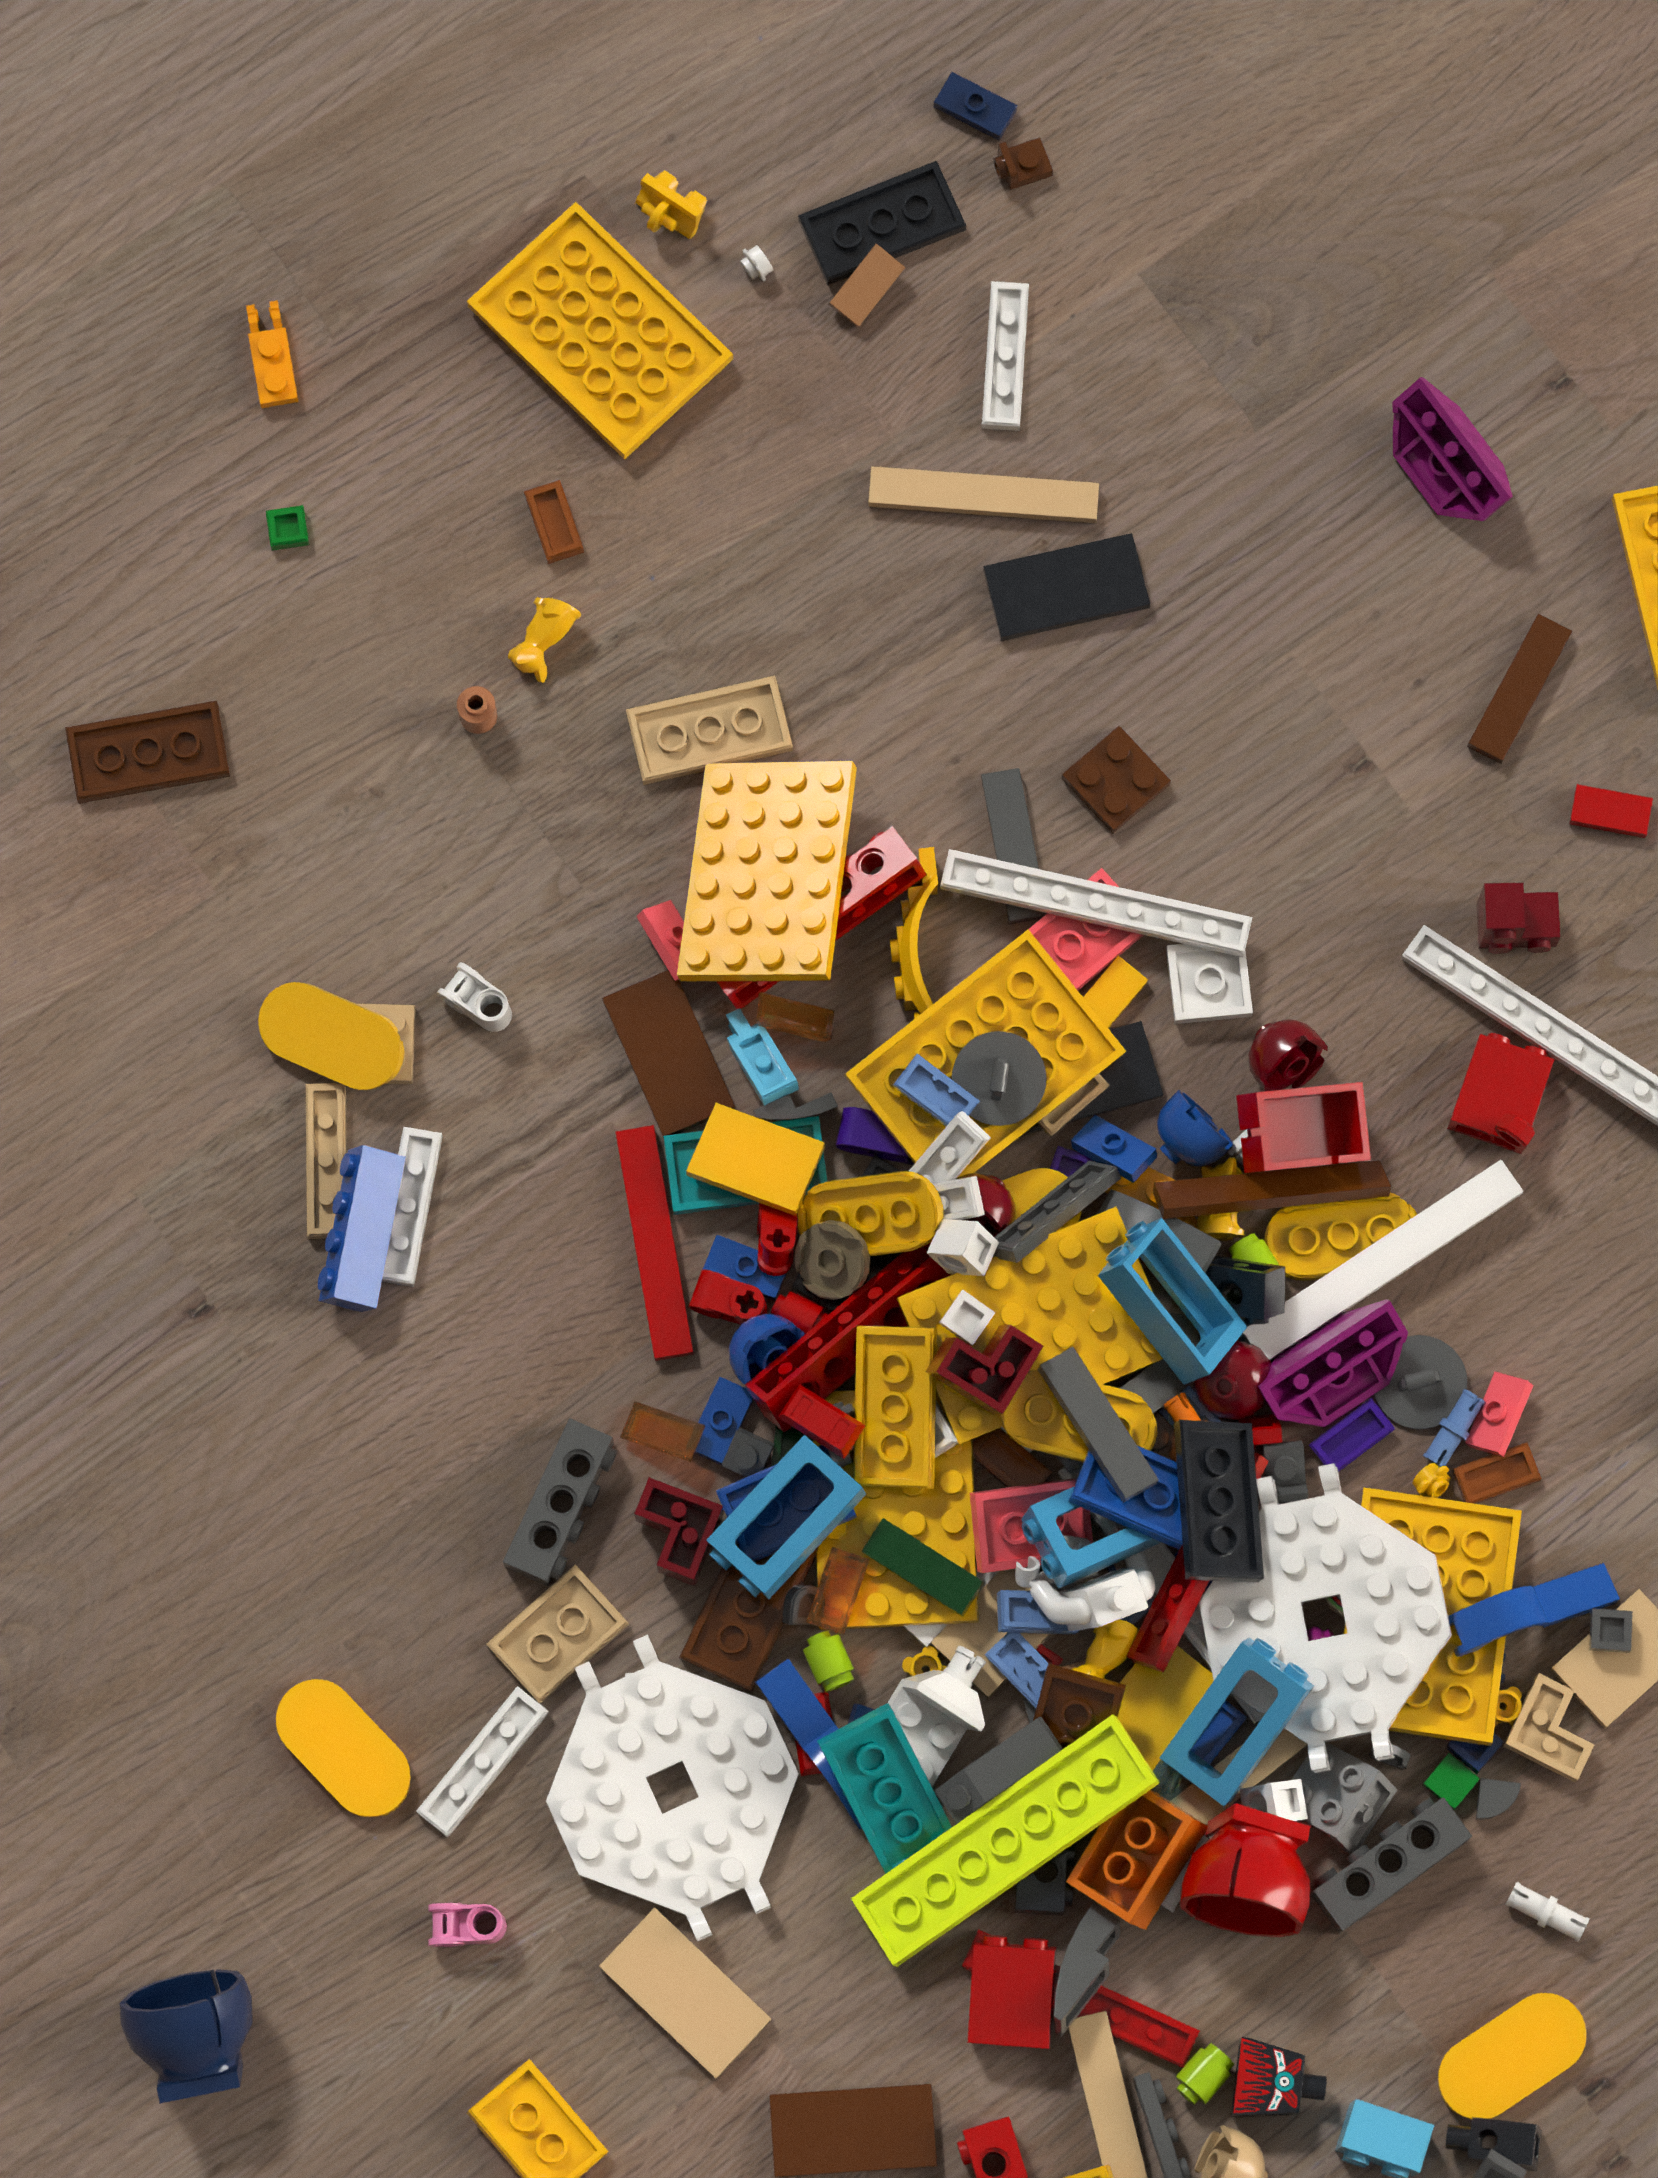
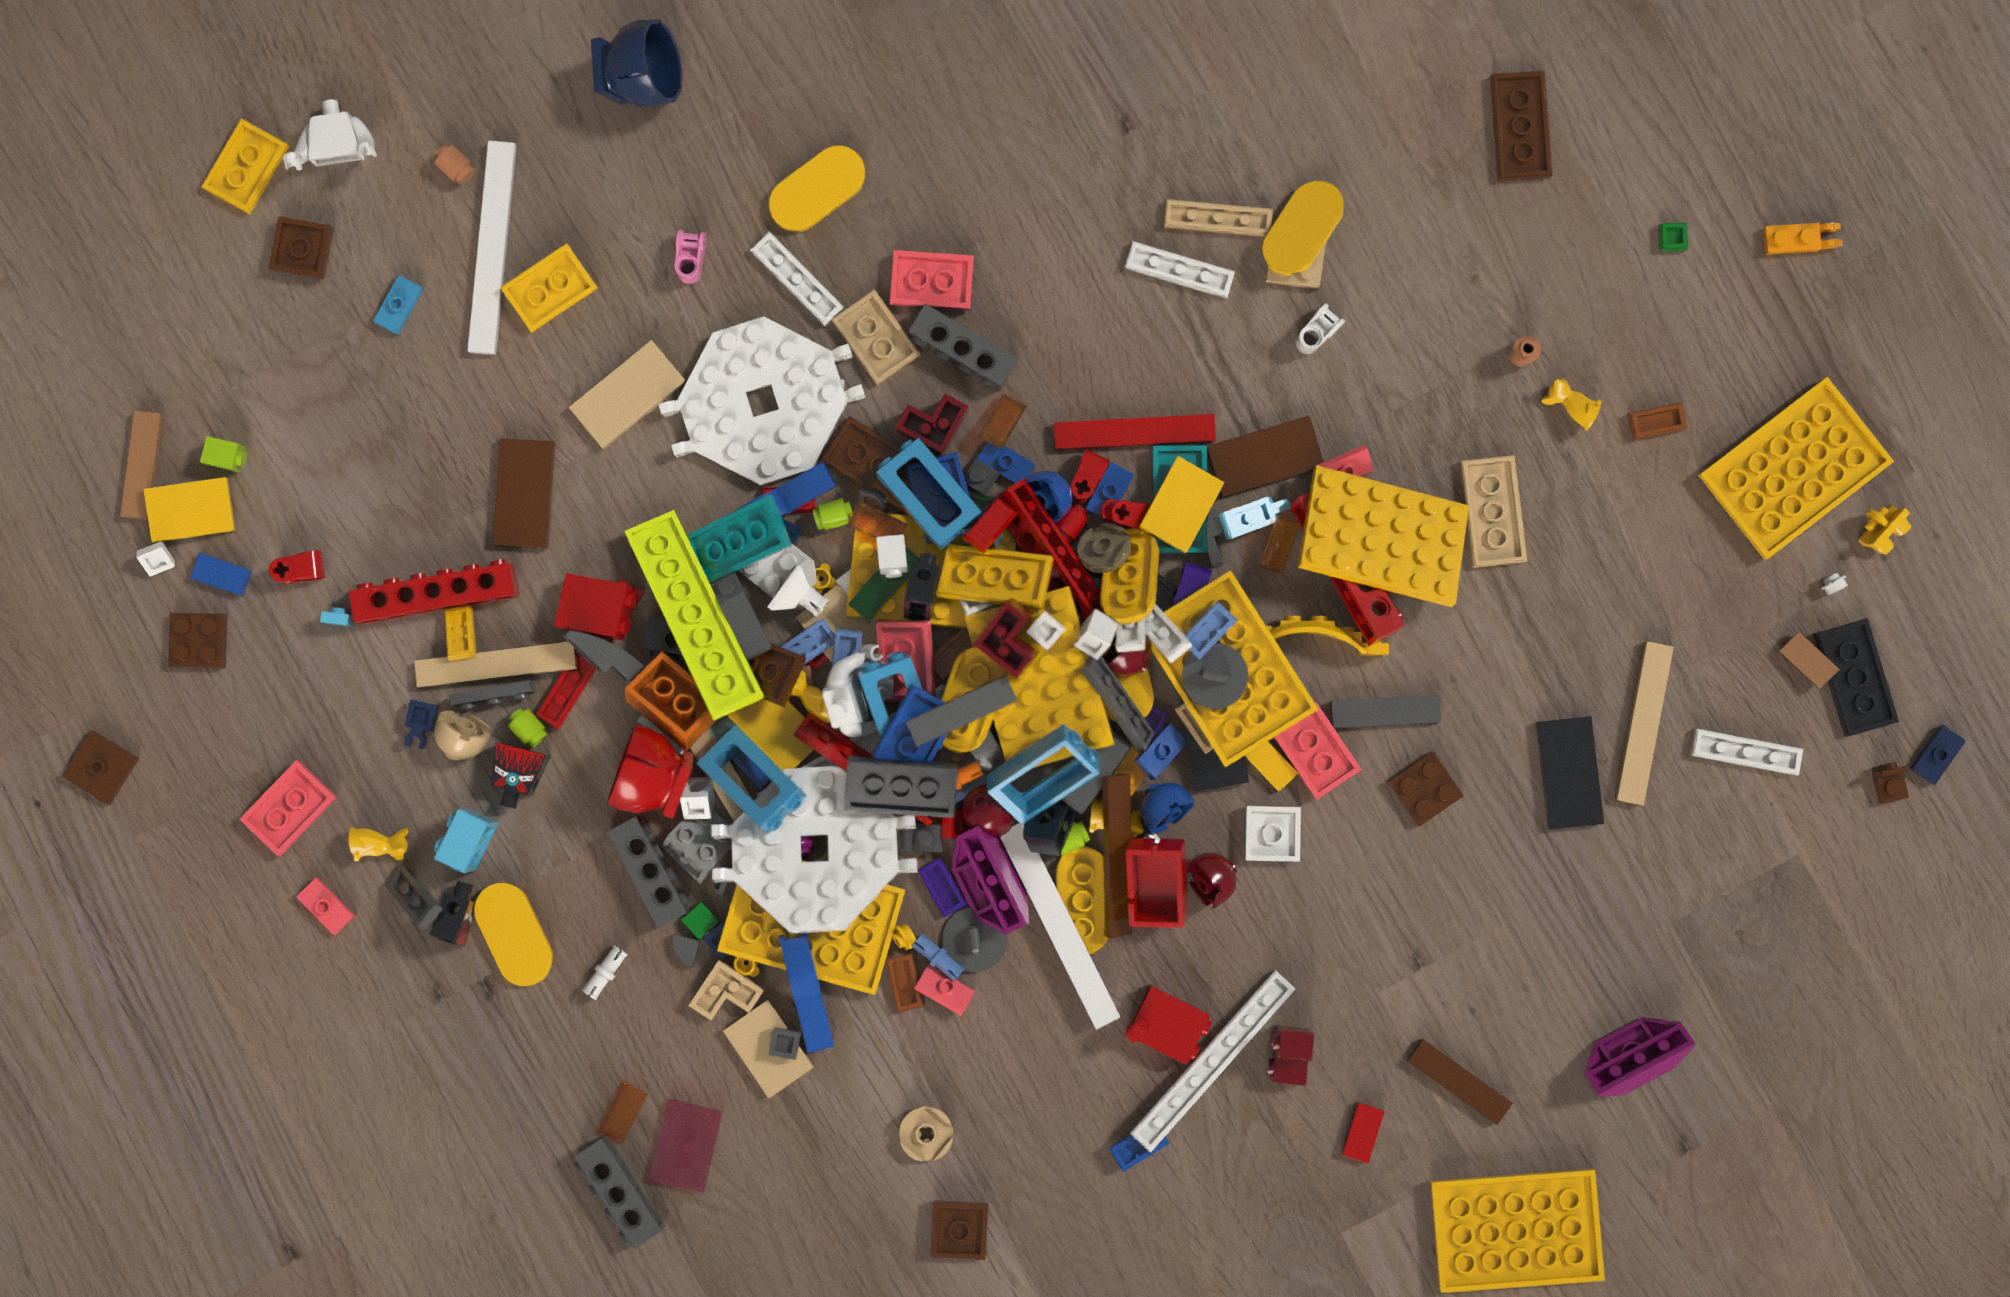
camera: 95 degrees right, 10 degrees up
(361, 1228) = (1166, 234): brick -> none
(463, 1561) = (931, 279): none -> coral plate
(884, 1557) = (892, 555): none -> white brick
(926, 1508) = (921, 588): none -> black torso
(1096, 903) = (1336, 762): white tile -> none

